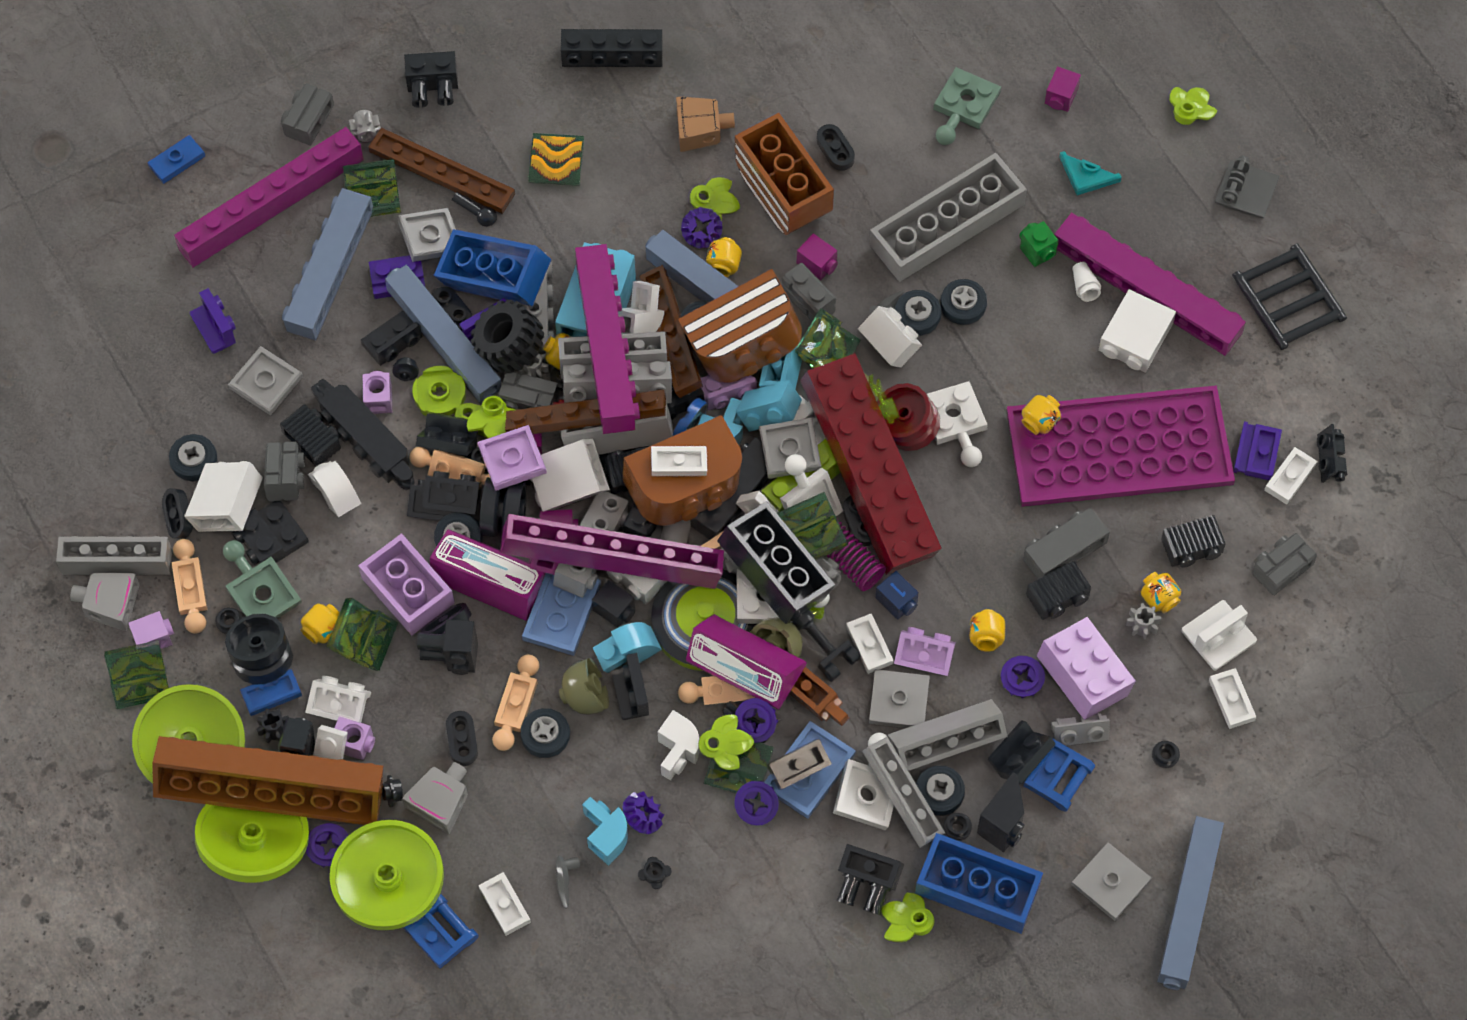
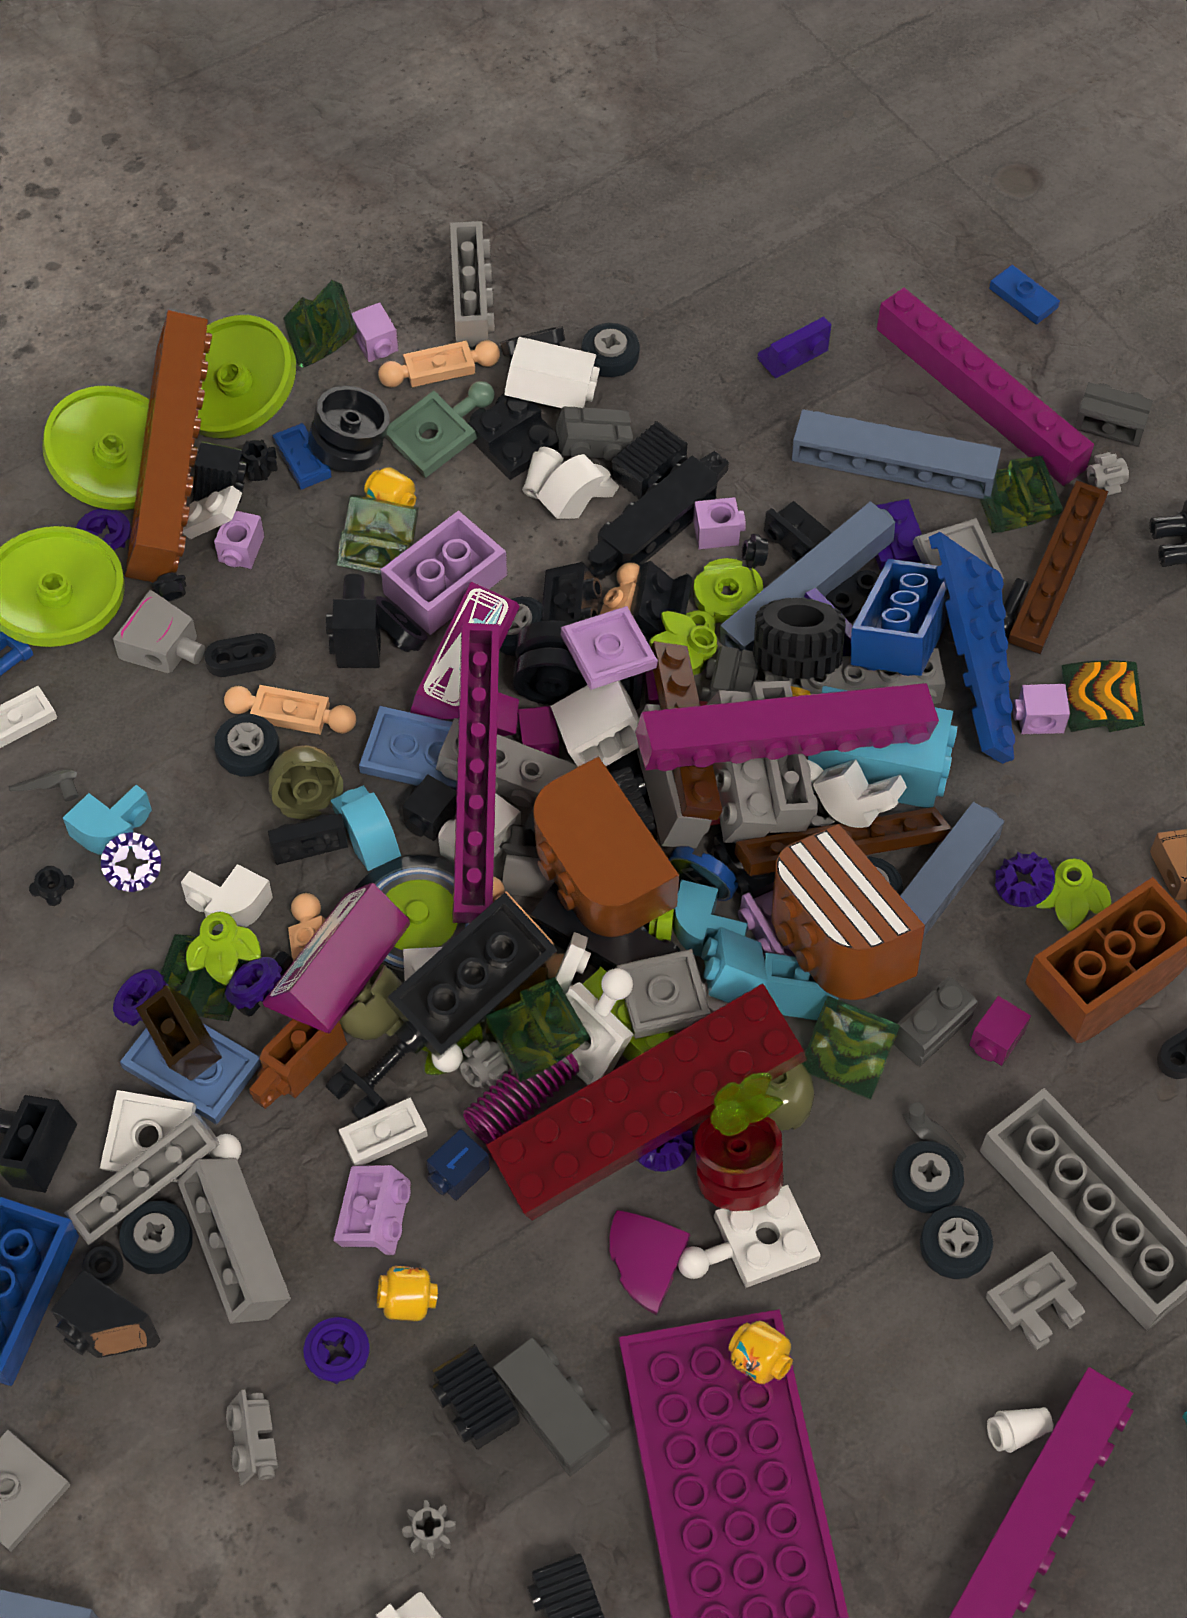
camera: 85 degrees right, 5 degrees down
(108, 598) = (416, 290): light grey torso -> none
(225, 614) = (397, 404): black plate -> none
(265, 380) = (723, 410): light grey plate -> none
(310, 513) = (541, 467): none -> white cone
(333, 699) = (292, 522): white bracket -> none
(517, 224) = (979, 634): none -> blue wing
(566, 197) = (1042, 709): none -> lavender brick
(679, 460) = (593, 818): white plate -> none
(724, 256) = (978, 908): yellow head -> none
(890, 336) = (876, 1133): white brick -> none
(898, 699) = (300, 1179): light grey plate -> none
(964, 484) = (646, 1256): none -> magenta brick
(999, 265) = (1031, 1291): none -> light grey plate
(1020, 752) = (209, 1346): black bracket -> none
(1038, 243) = (1074, 1348): green brick -> none
(1051, 770) = (184, 1394): blue plate -> none
(1085, 668) = (342, 1436): lavender brick -> none
(1137, 331) = (938, 1510): white brick -> none
(1161, 592) = (480, 1556): yellow head -> none
(1169, 747) = (201, 1561): black plate -> none

